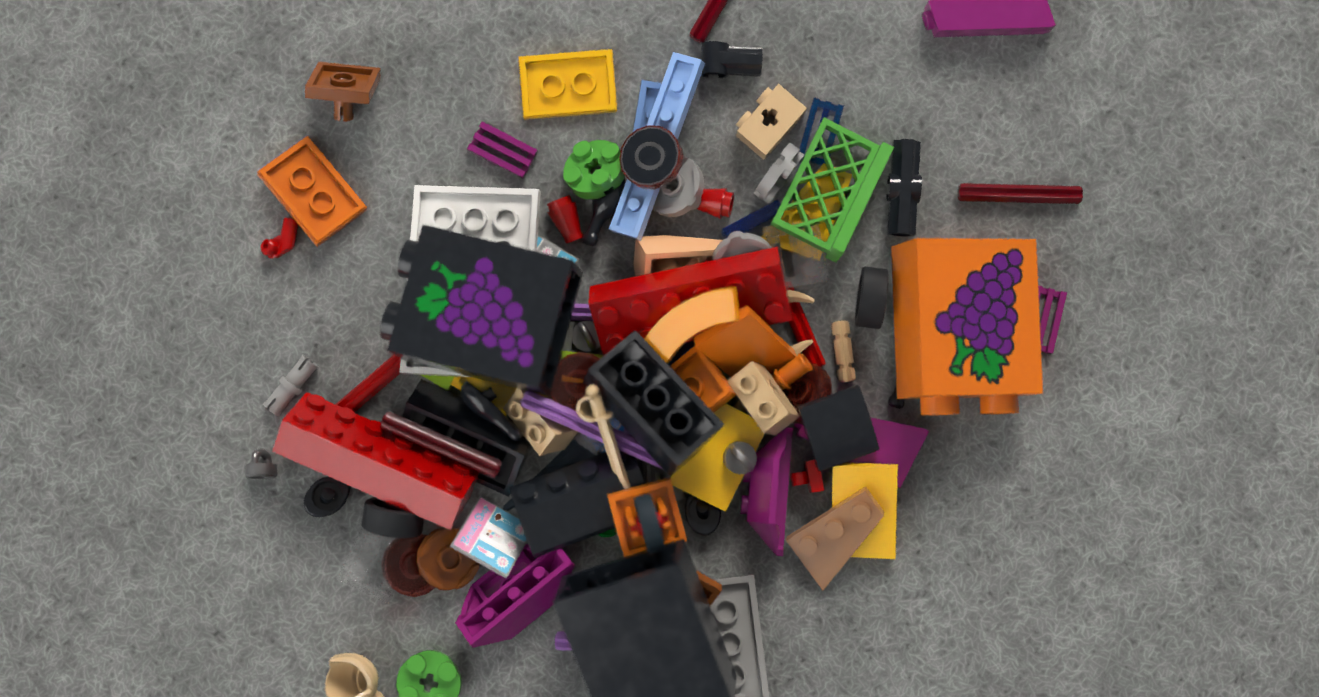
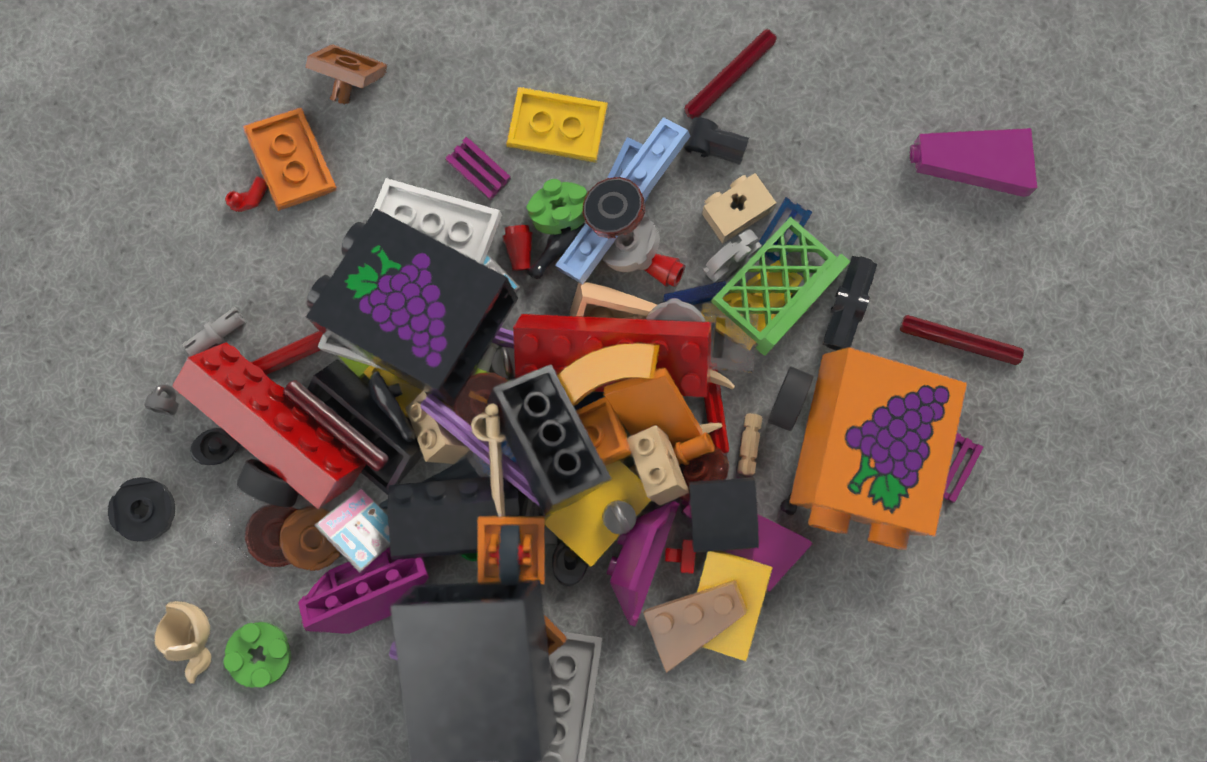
camera: 25 degrees right, 5 degrees down
(257, 569) = (128, 497): none -> black plate

